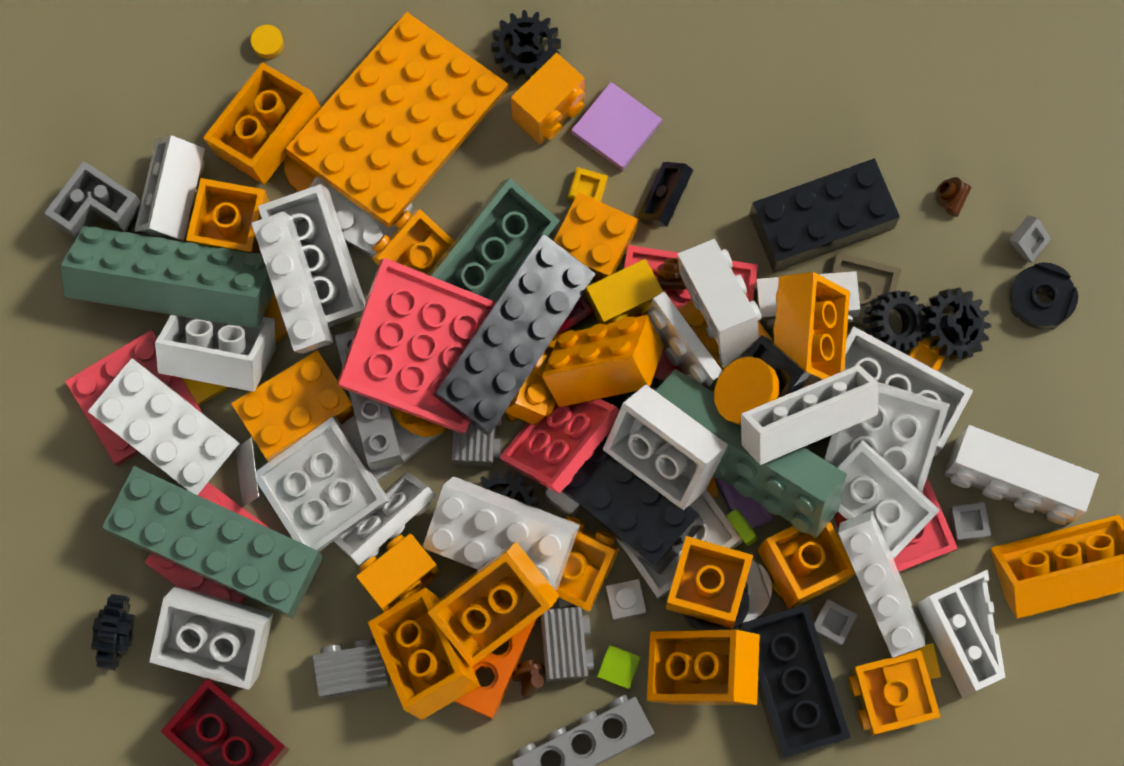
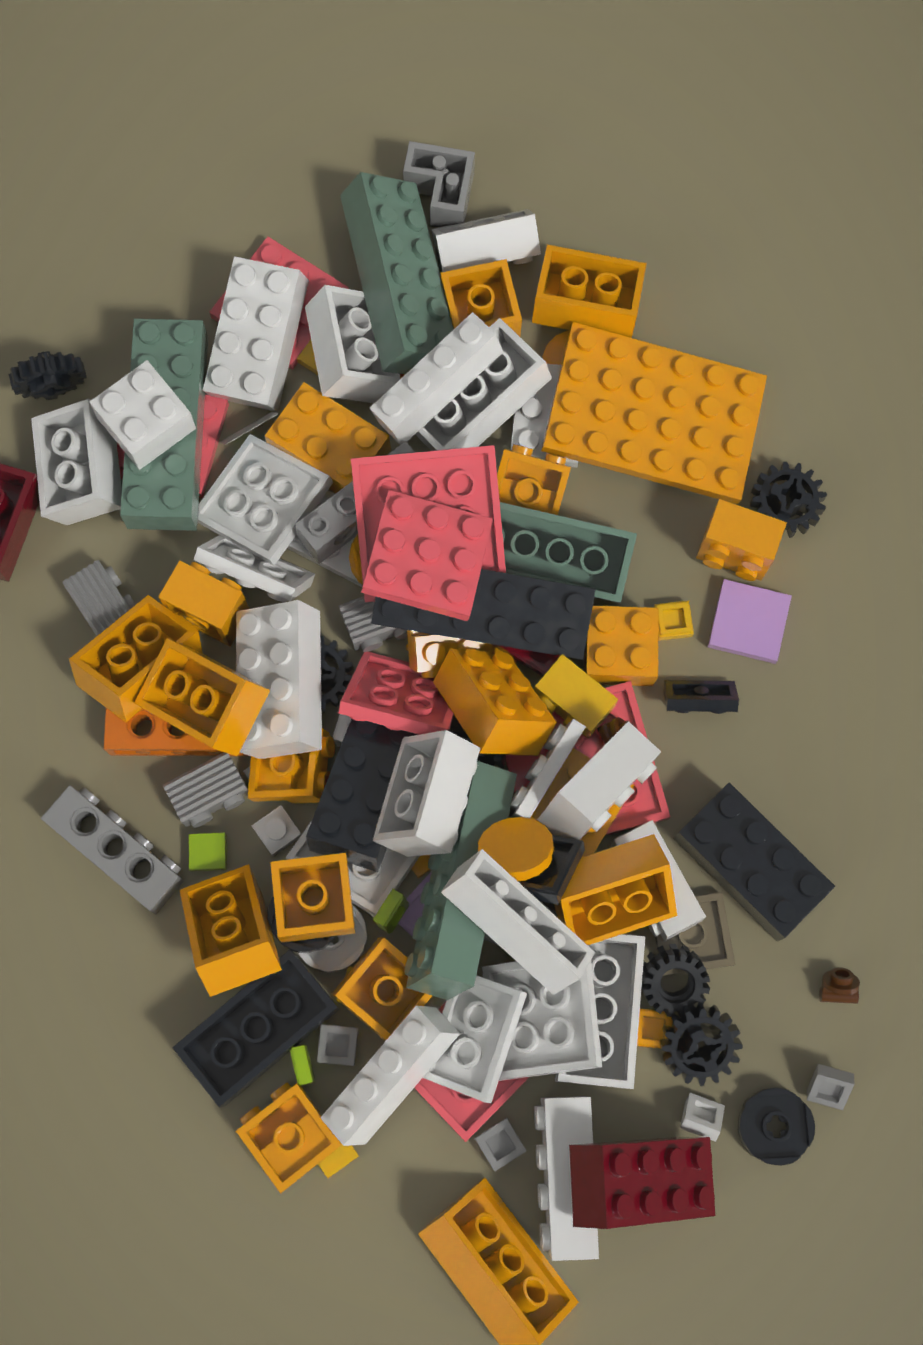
camera: 65 degrees right, 0 degrees up
(208, 550) = (143, 414): none -> white brick
(267, 41) = (675, 266): yellow tile -> none
(457, 356) = (427, 555): none -> coral plate
(530, 676) = (166, 766): reddish brown plate -> none
(841, 658) = (302, 1065): none -> lime tile
(965, 633) = (379, 1185): white wedge -> none
(1013, 349) = (702, 1116): none -> white plate
(1051, 414) = (641, 1182): none -> dark red brick

